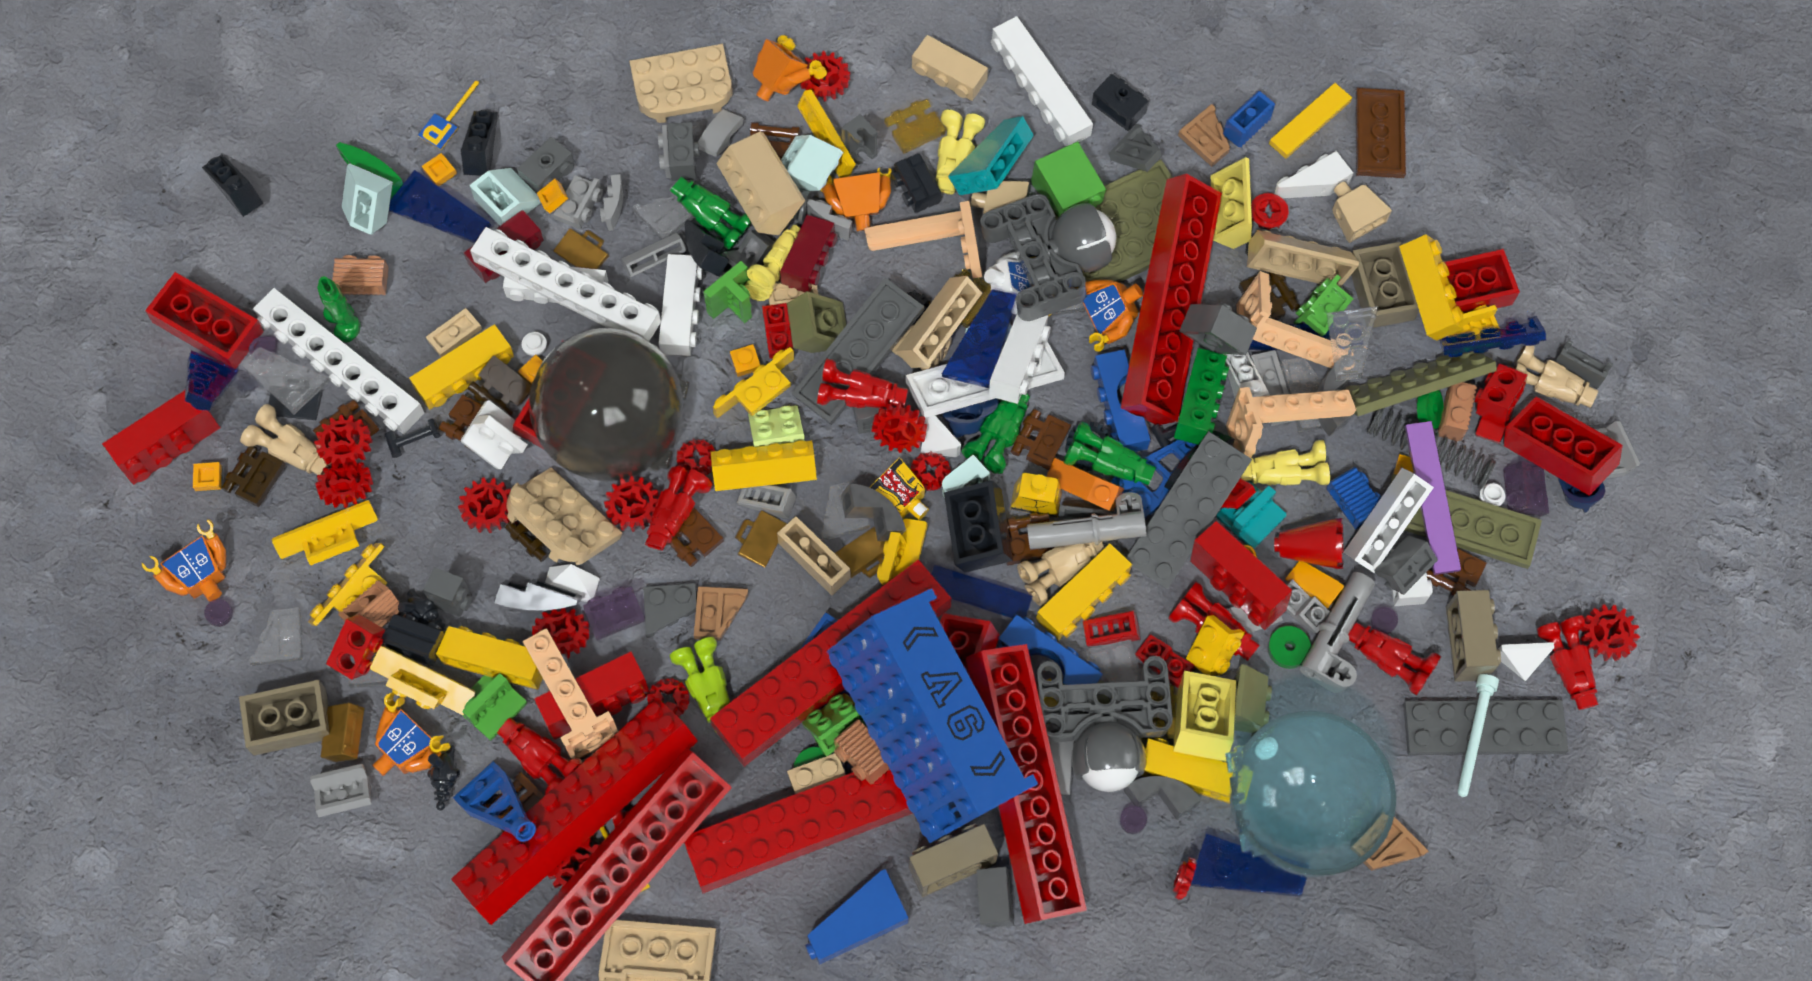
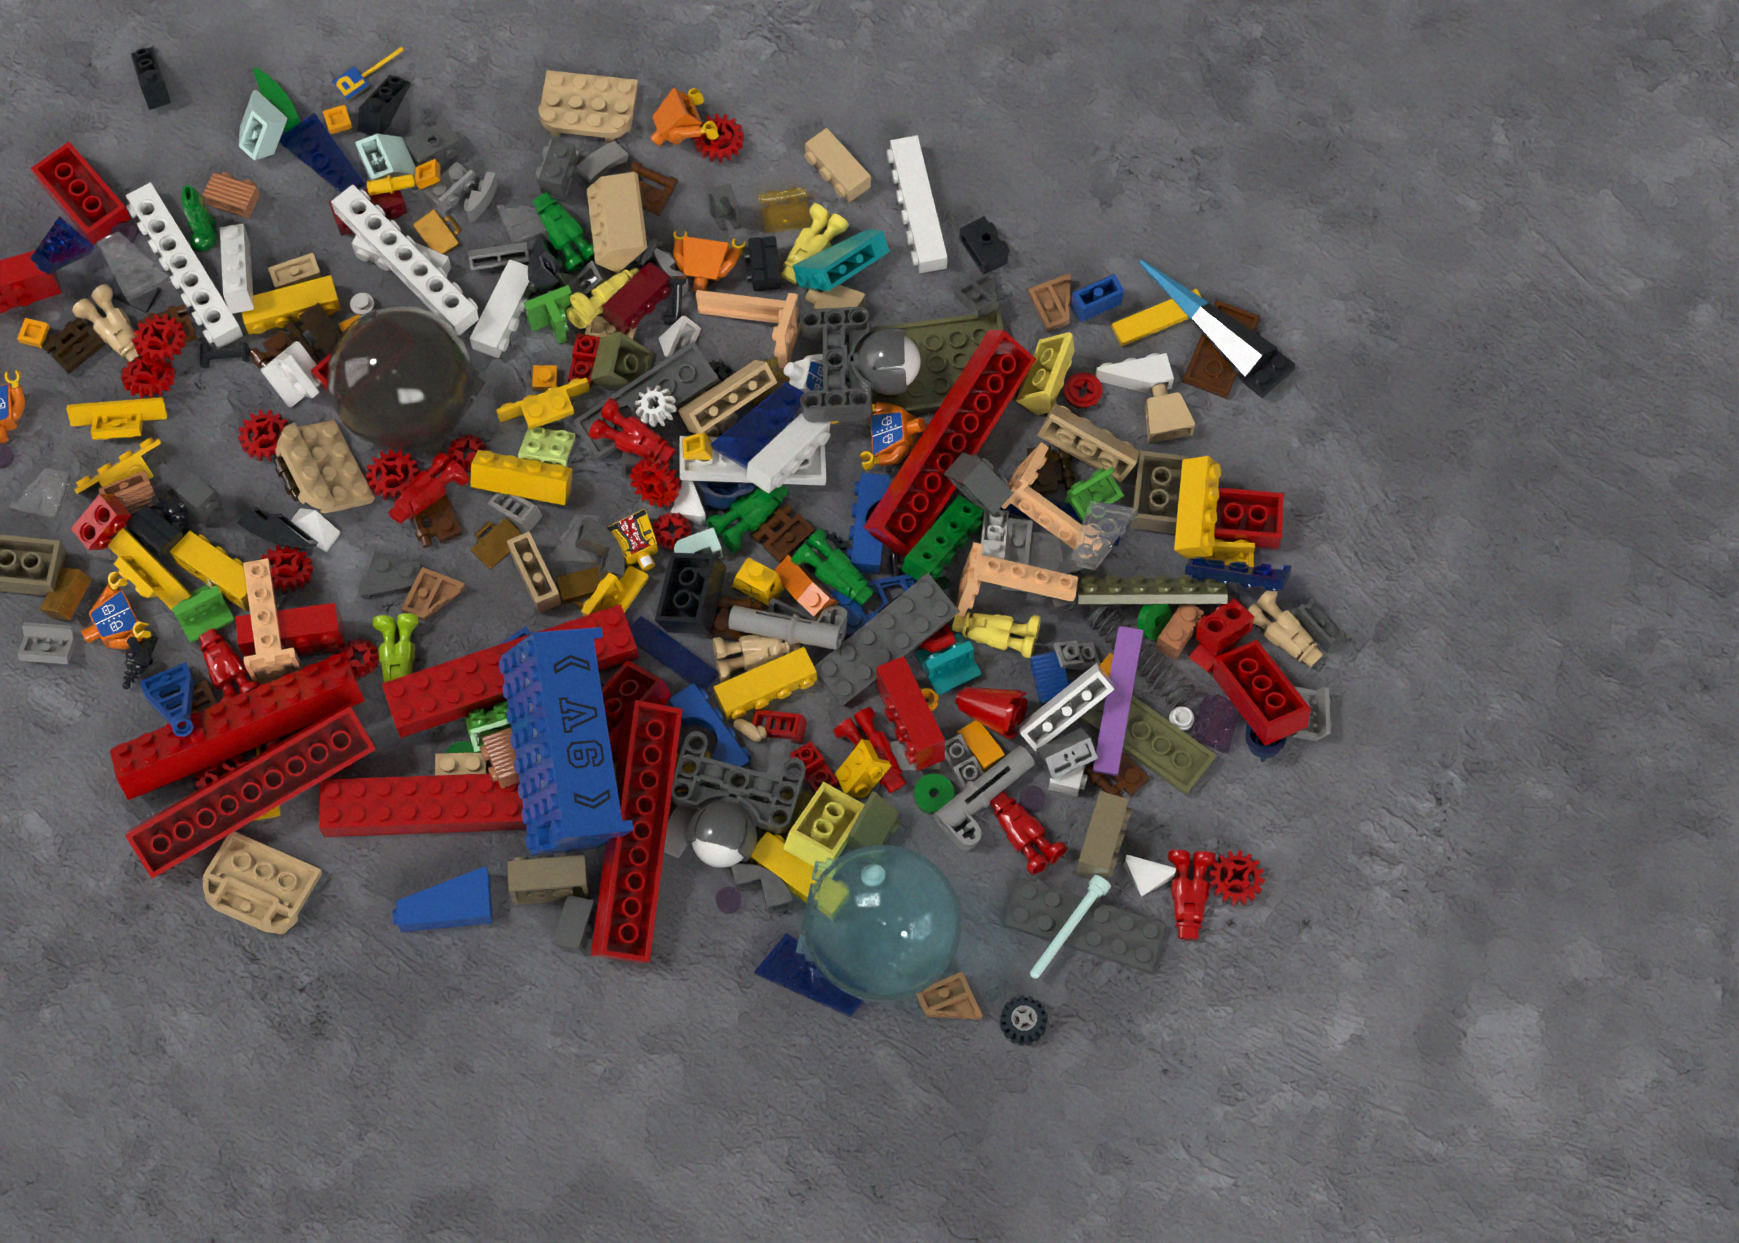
camera: 20 degrees right, 0 degrees up
(396, 347) = (236, 268): none -> white brick
(521, 216) = (390, 184): none -> yellow axle
(613, 612) = (339, 565): clear purple bracket -> none
(810, 162) = (669, 214): light aqua slope -> none
(824, 130) = (698, 193): yellow tile -> none
(851, 262) = (677, 282): none -> black piece
(862, 280) = (679, 335): none -> white slope
(869, 344) = (647, 410): none -> white gear
(928, 380) = (697, 447): none -> yellow slope
(1067, 179) = (901, 302): bright green slope -> none
(1088, 643) = (750, 730): none -> tan arm
(1184, 878) = (749, 964): red gear -> none
(1372, 466) = (1075, 655): none -> light grey slope
(1408, 128) = (1247, 353): none -> black plate
(1472, 833) = (1028, 1012): none -> black wheel

